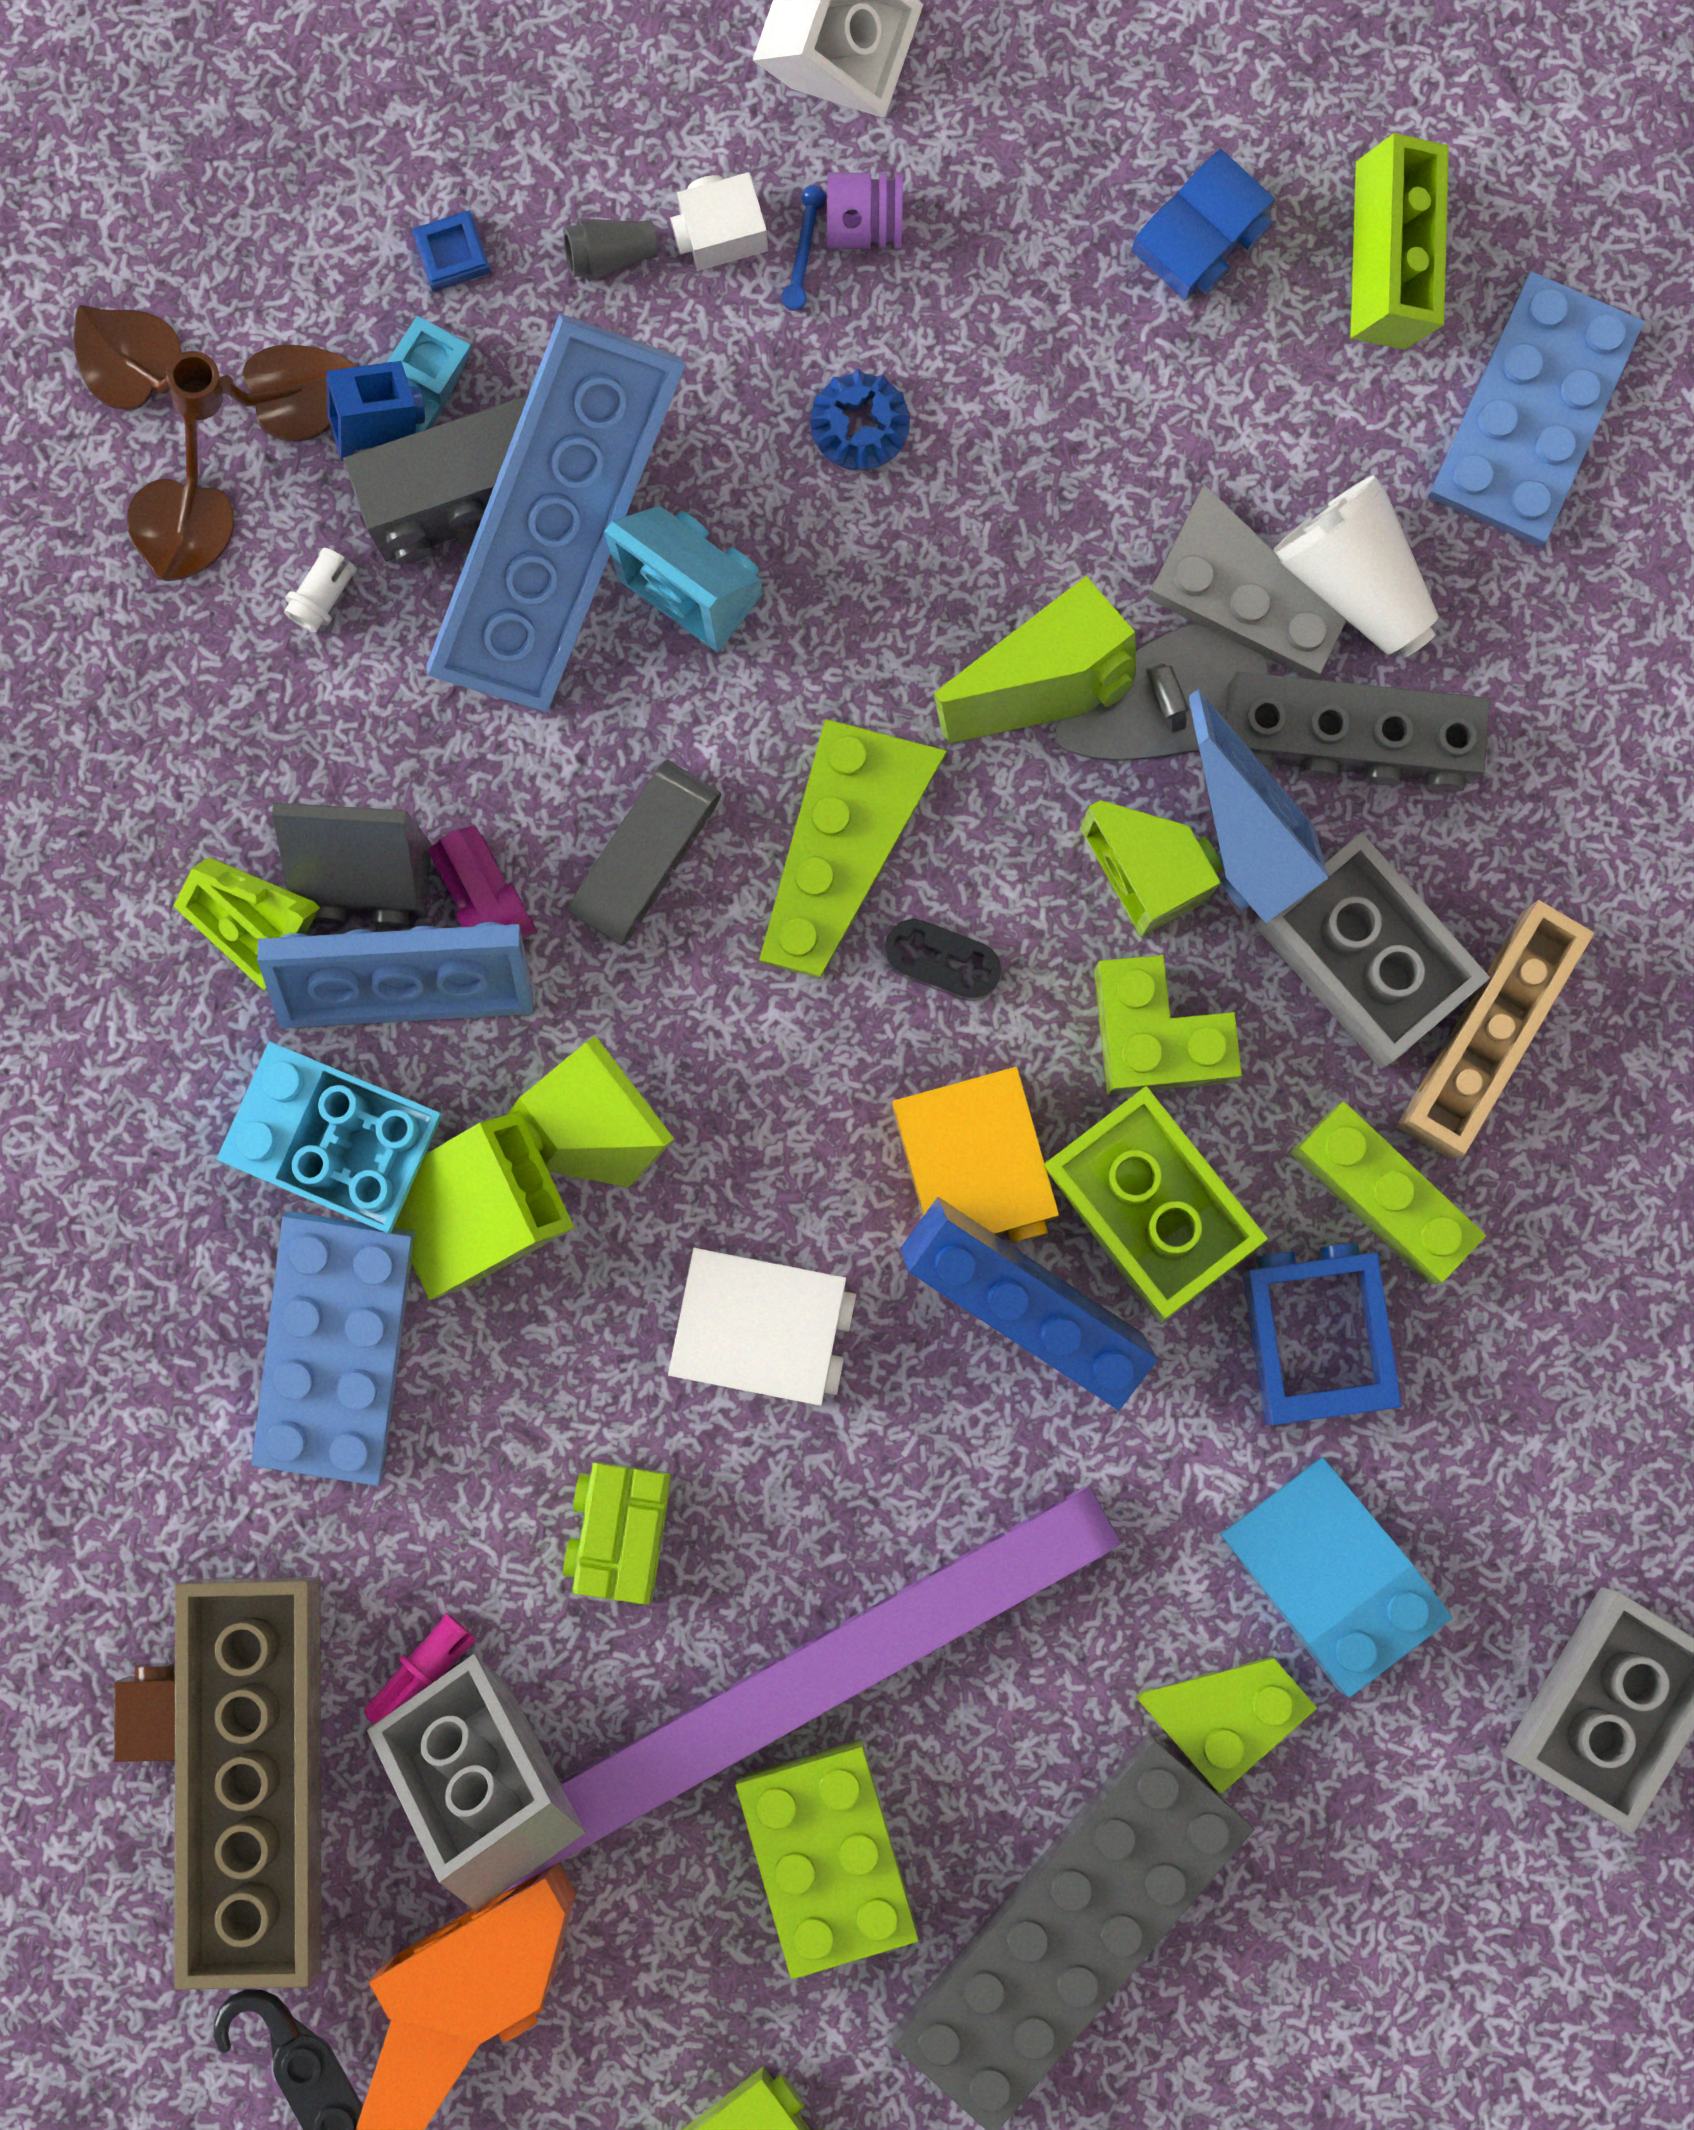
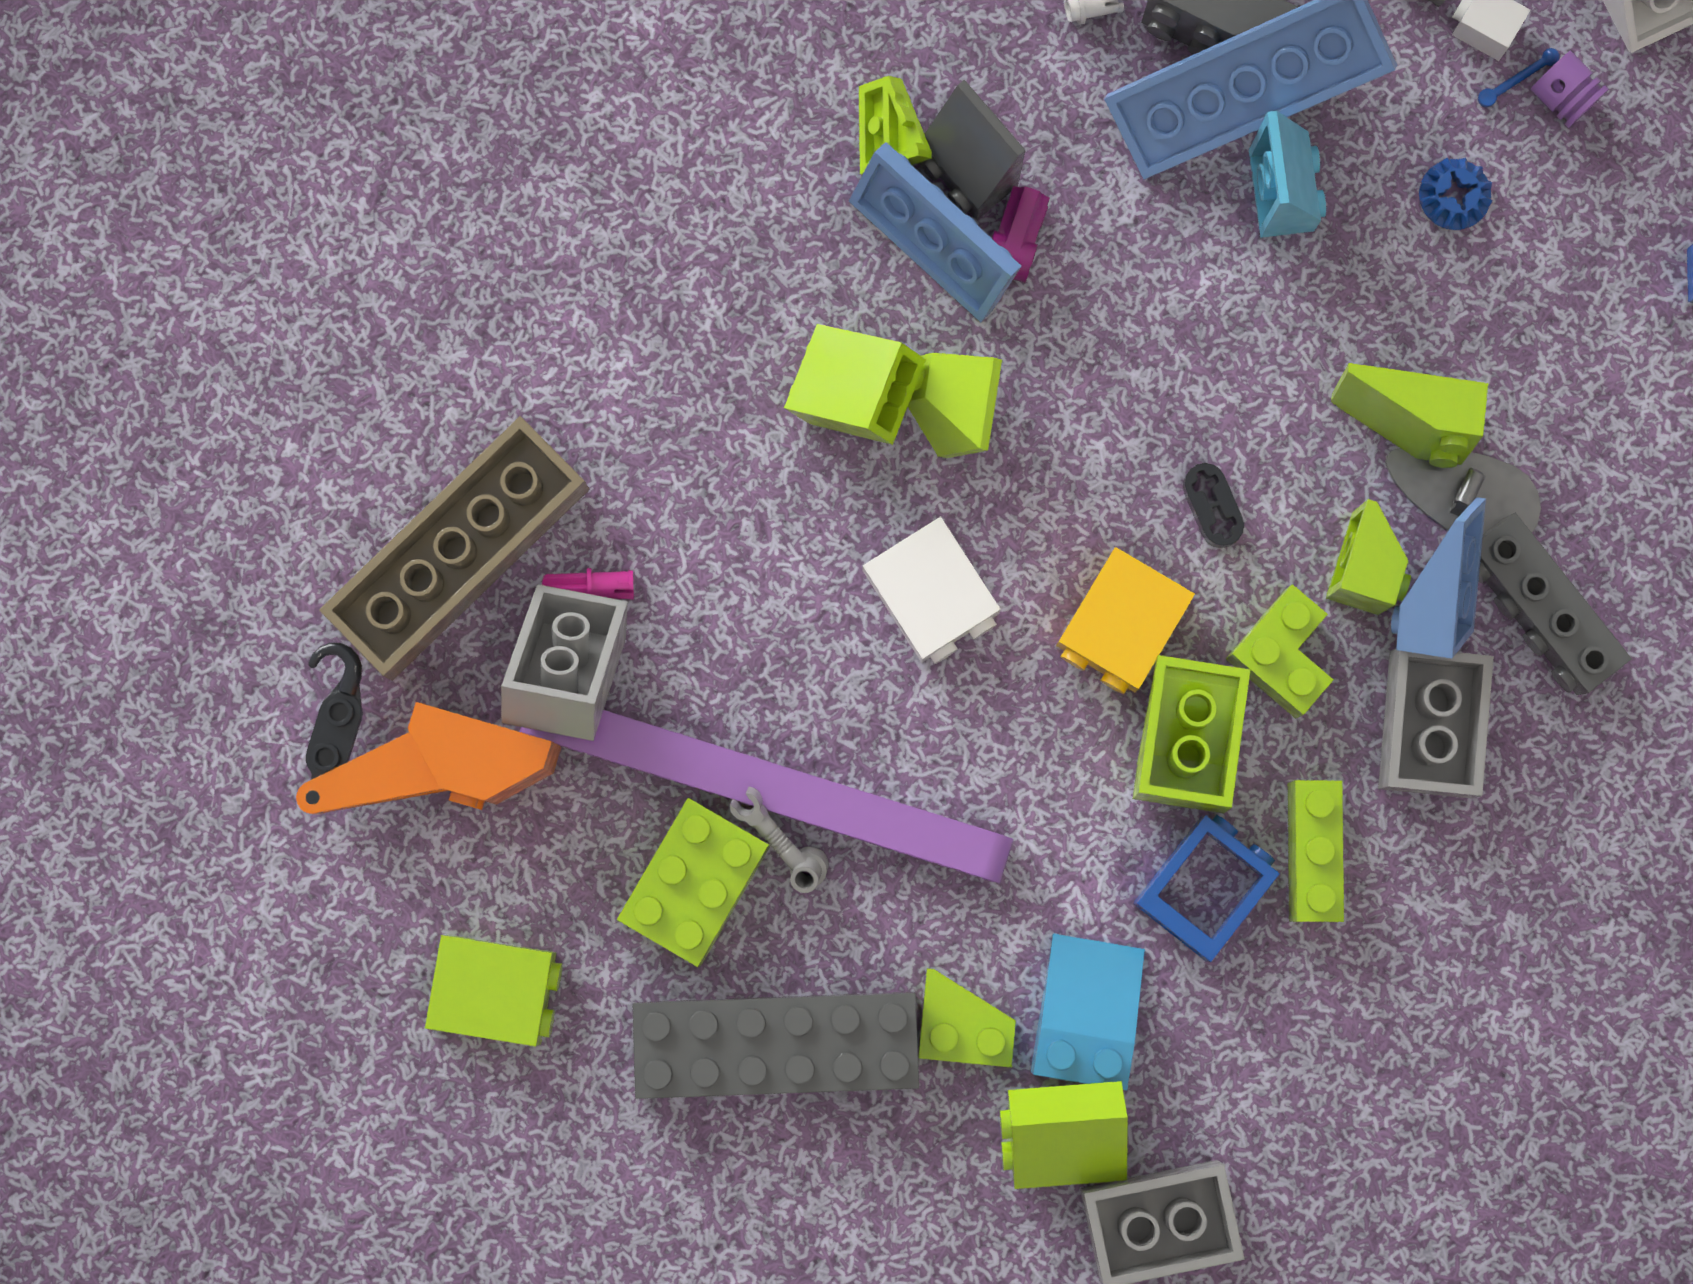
camera: 50 degrees right, 0 degrees up
(145, 1714) = (438, 466): reddish brown brick -> none
(329, 1137) = (818, 276): medium azure slope -> none
(332, 1348) = (712, 382): medium blue plate -> none
(619, 1532) = (758, 618): lime brick -> none
(642, 850) = (1119, 296): dark grey beam -> none
(847, 826) = (1237, 389): lime wing -> none
(917, 1722) = (805, 859): none -> light grey brick
(1028, 1303) = (1077, 715): blue brick -> none
(1240, 590) = (1563, 478): light grey wing -> none
(1364, 568) = (1636, 529): white cone -> none
(1439, 1723) = (1065, 1135): none -> lime brick
(1495, 1030) = (1457, 827): tan brick -> none

